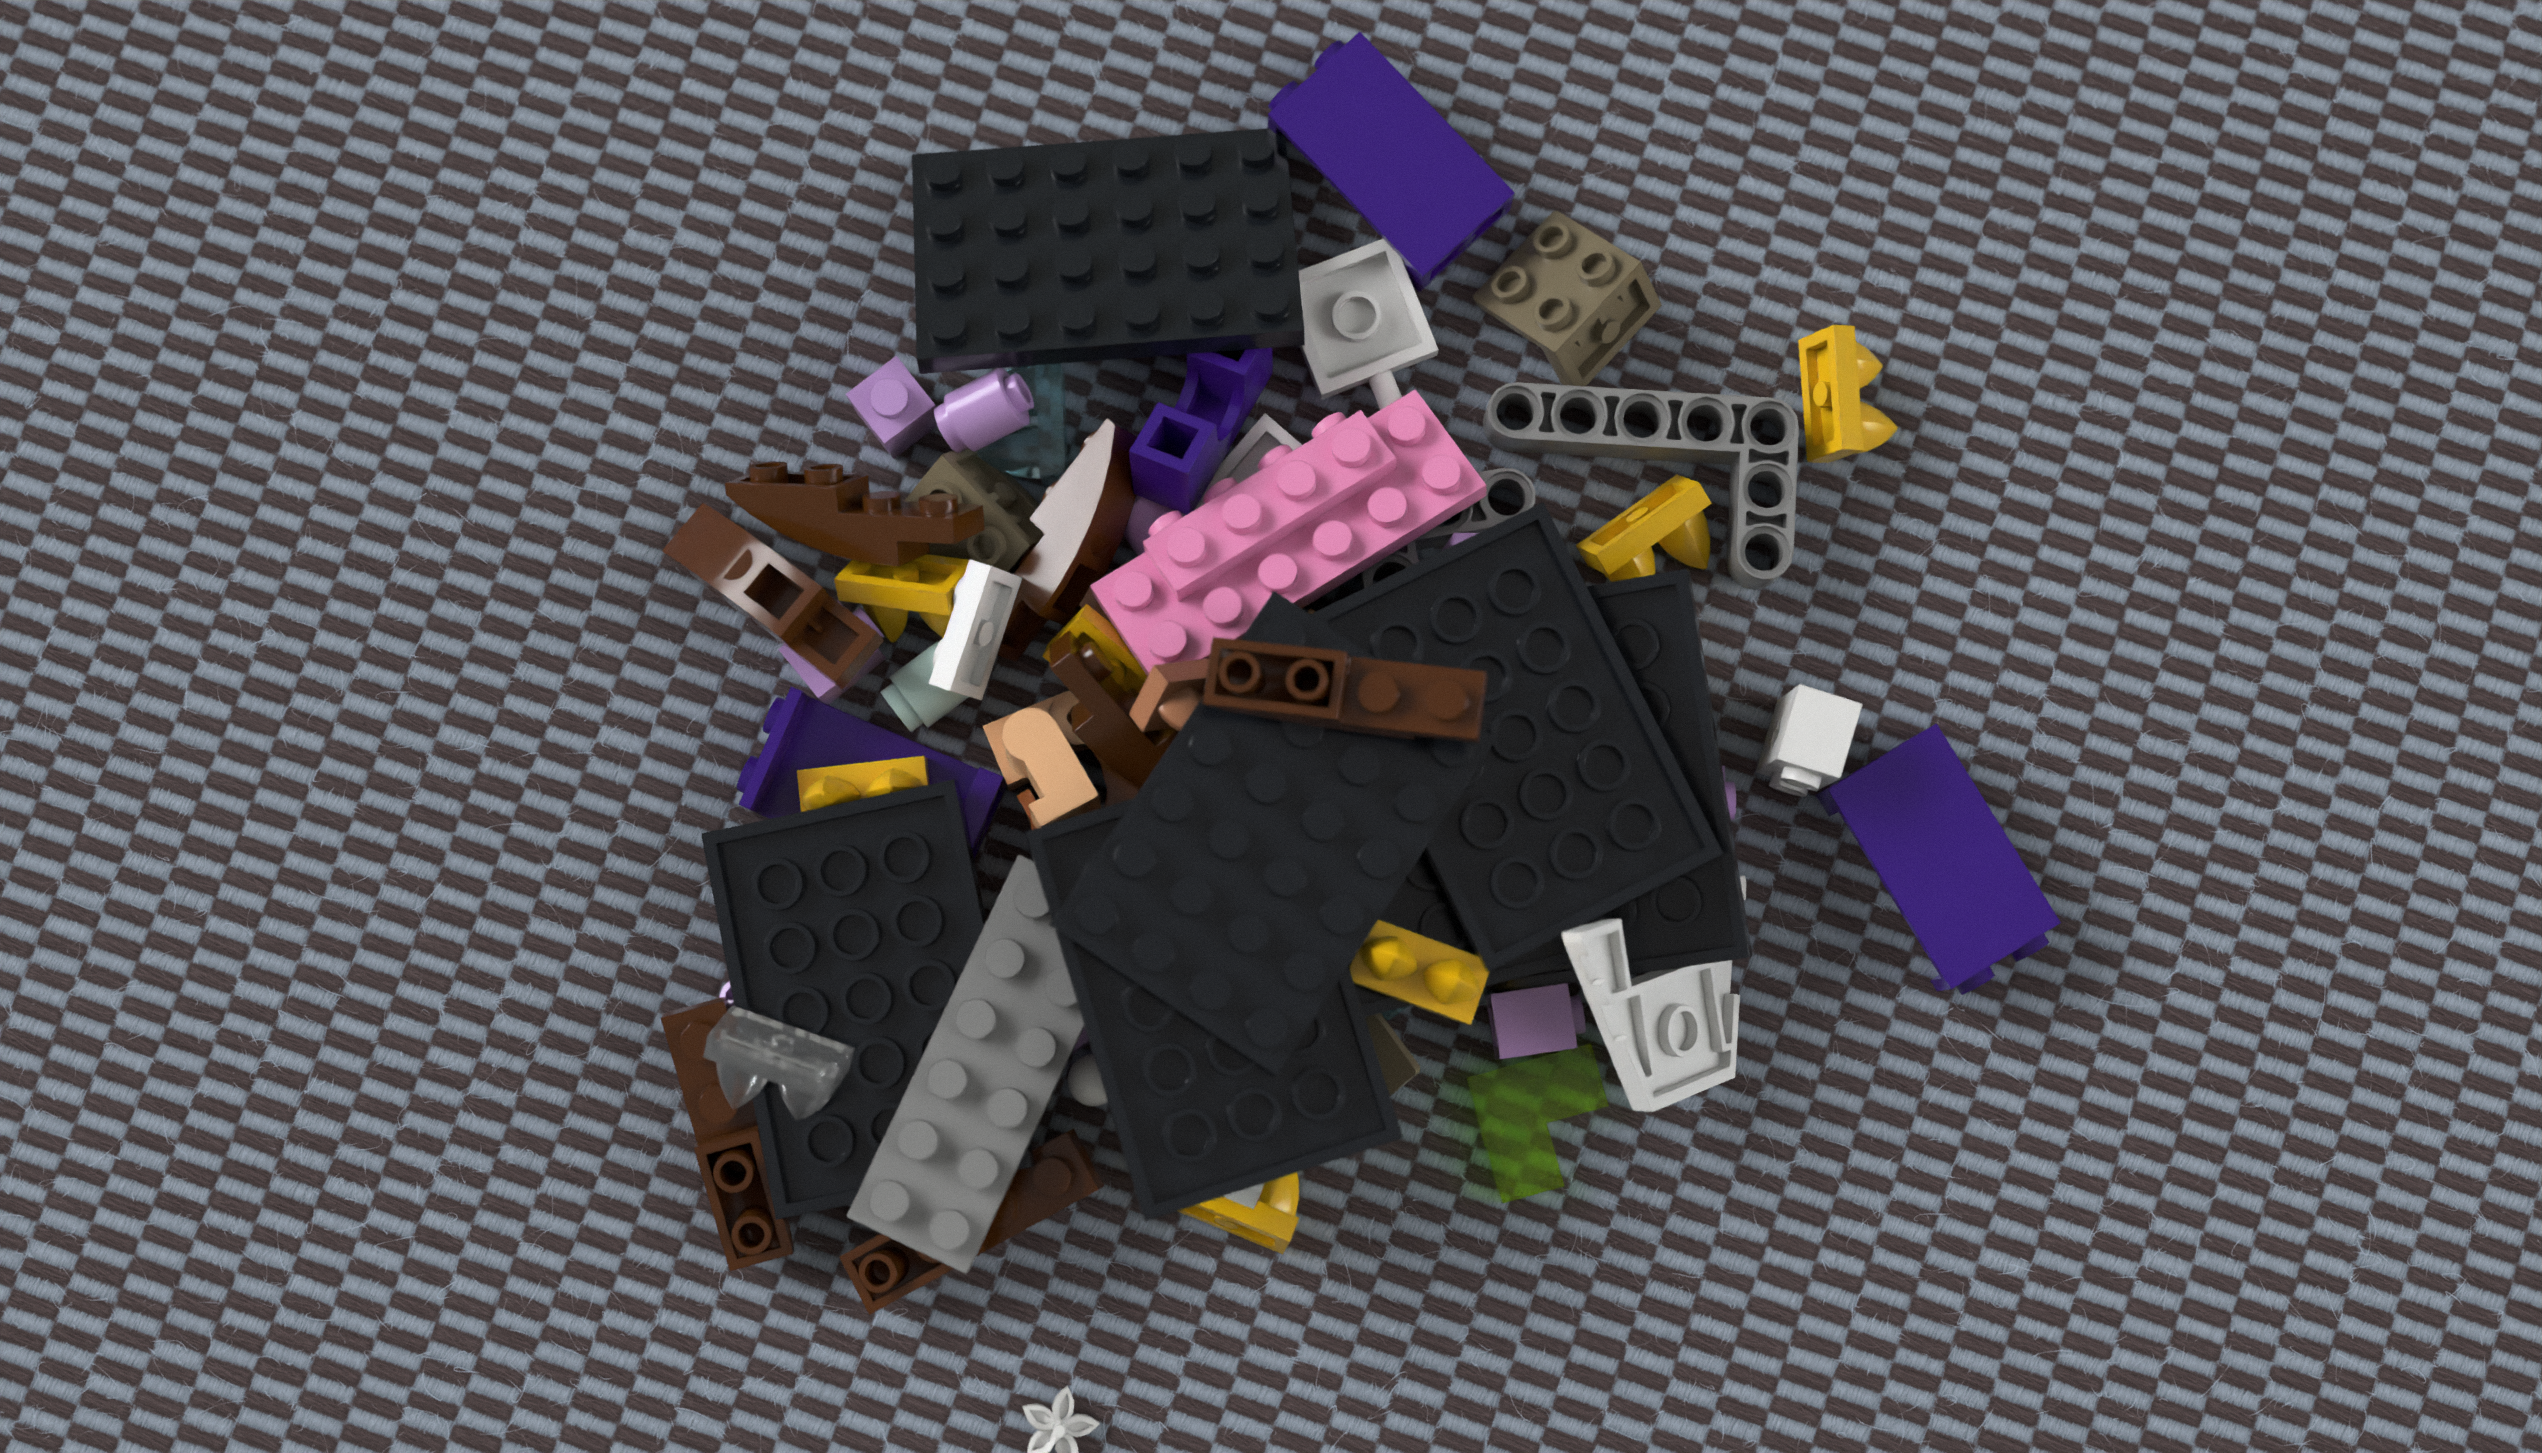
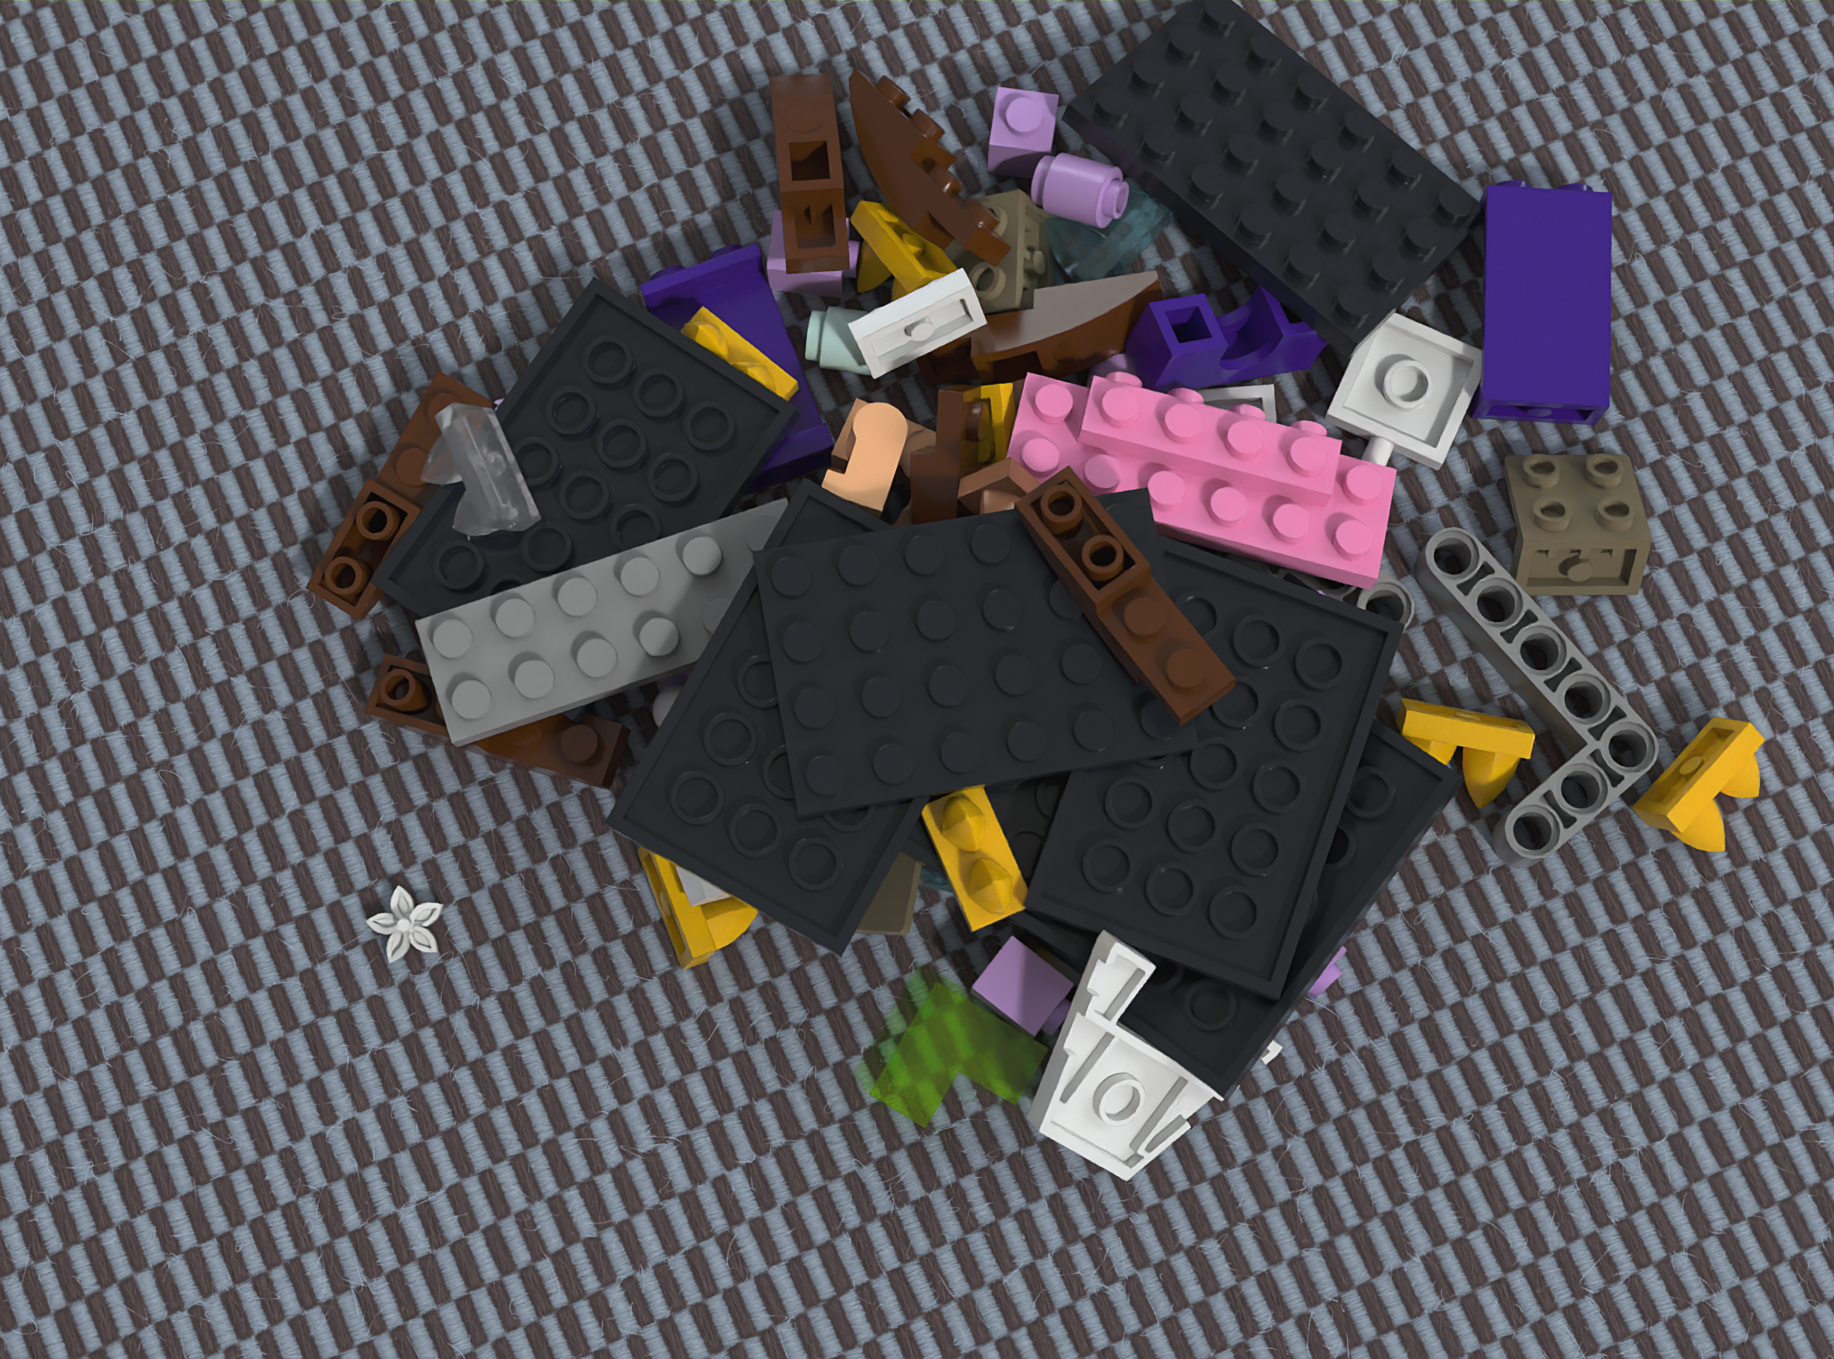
camera: 50 degrees right, 5 degrees down
(1808, 740) = (1426, 993): white brick -> none
(1943, 859) = (1439, 1182): dark purple panel -> none

